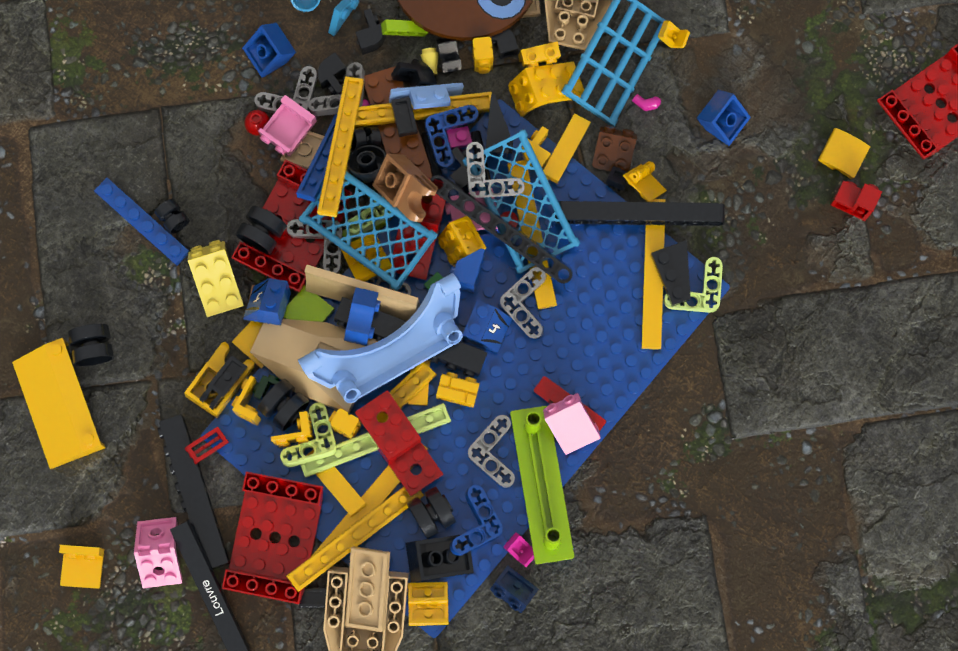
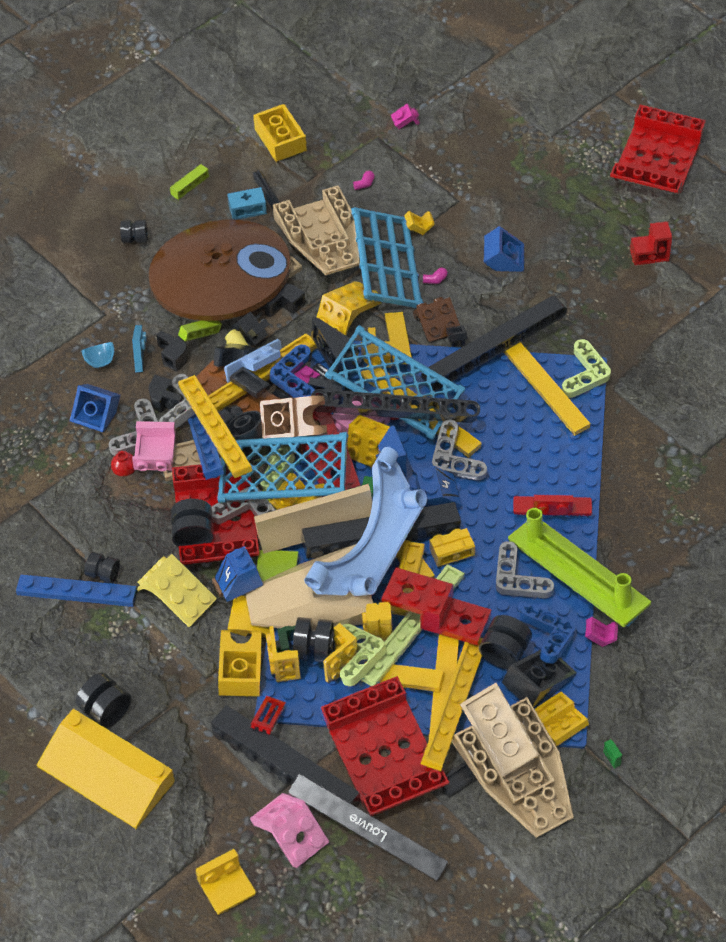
camera: 30 degrees left, 25 degrees down
(224, 380) = (247, 649): black hinge -> none
(361, 316) = (328, 519): blue brick -> none
(480, 179) = (352, 379): light grey beam -> none
(482, 54) = (279, 311): yellow brick -> none
(514, 589) = (620, 666): dark blue bracket -> none
(544, 53) = (325, 283): yellow plate -> none
(571, 423) = (567, 506): panel -> none
(644, 182) = (472, 322): yellow hinge -> none
(674, 272) = (555, 366): black wing -> none
(844, 153) = (614, 225): yellow slope -> none

